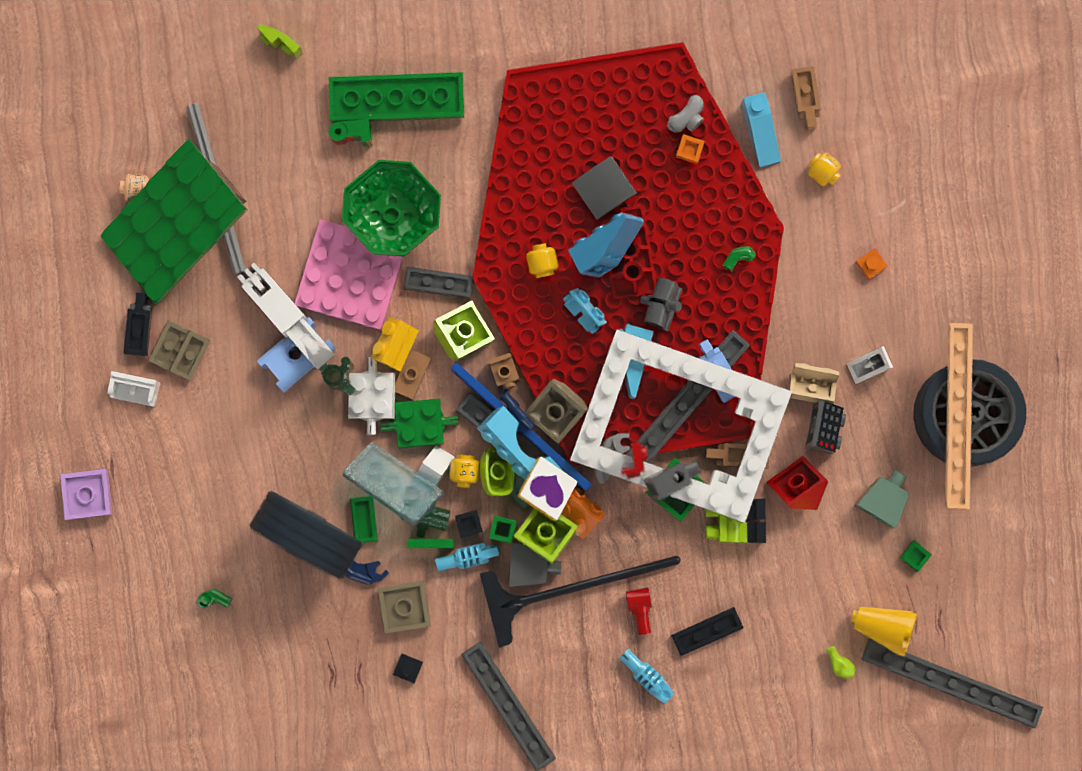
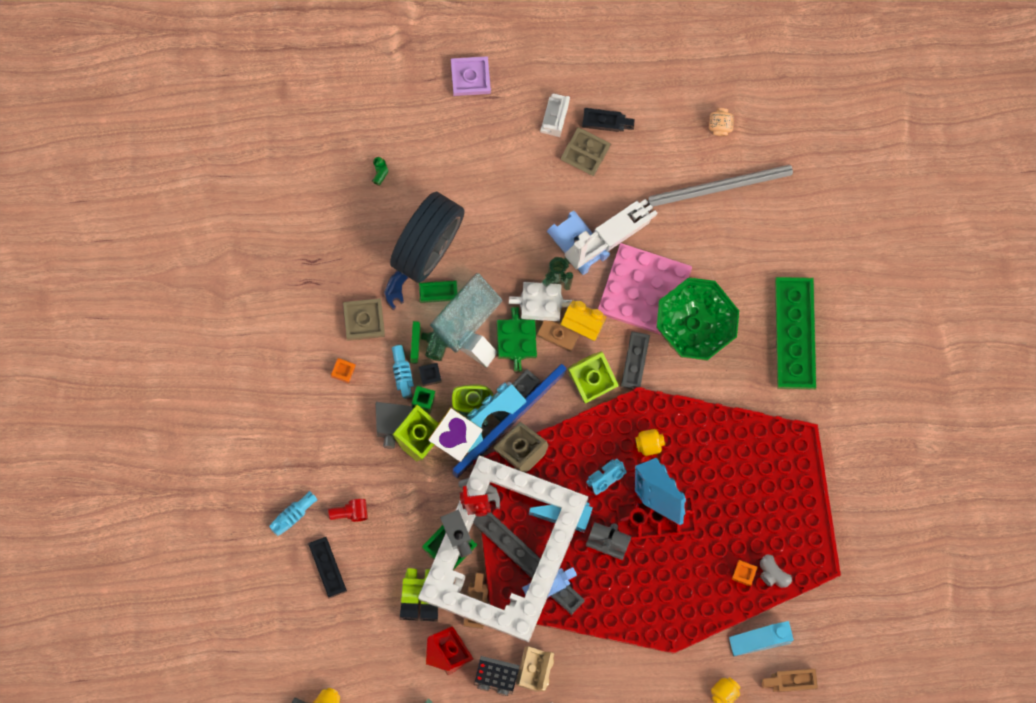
camera: 85 degrees right, 10 degrees down
(174, 221) = (693, 149): green piece -> none
(275, 38) = (846, 237): lime slope -> none
(351, 130) = (767, 299): green leg -> none
(408, 668) = (313, 321): black plate -> none
(464, 470) = (475, 372): yellow head -> none
(469, 627) = (343, 370): none -> orange plate
(500, 362) = (554, 416): medium nougat brick -> none
(505, 605) = (359, 399): black piece -> none
(508, 706) = (276, 400): dark grey tile -> none
(515, 408) = (527, 413): dark blue piece -> none
(582, 512) = (435, 466): orange bracket -> none
(604, 188) = (712, 498): dark grey slope -> none
(737, 254) = (651, 609): green arm -> none
(841, 666) = (290, 678): lime animal -> none

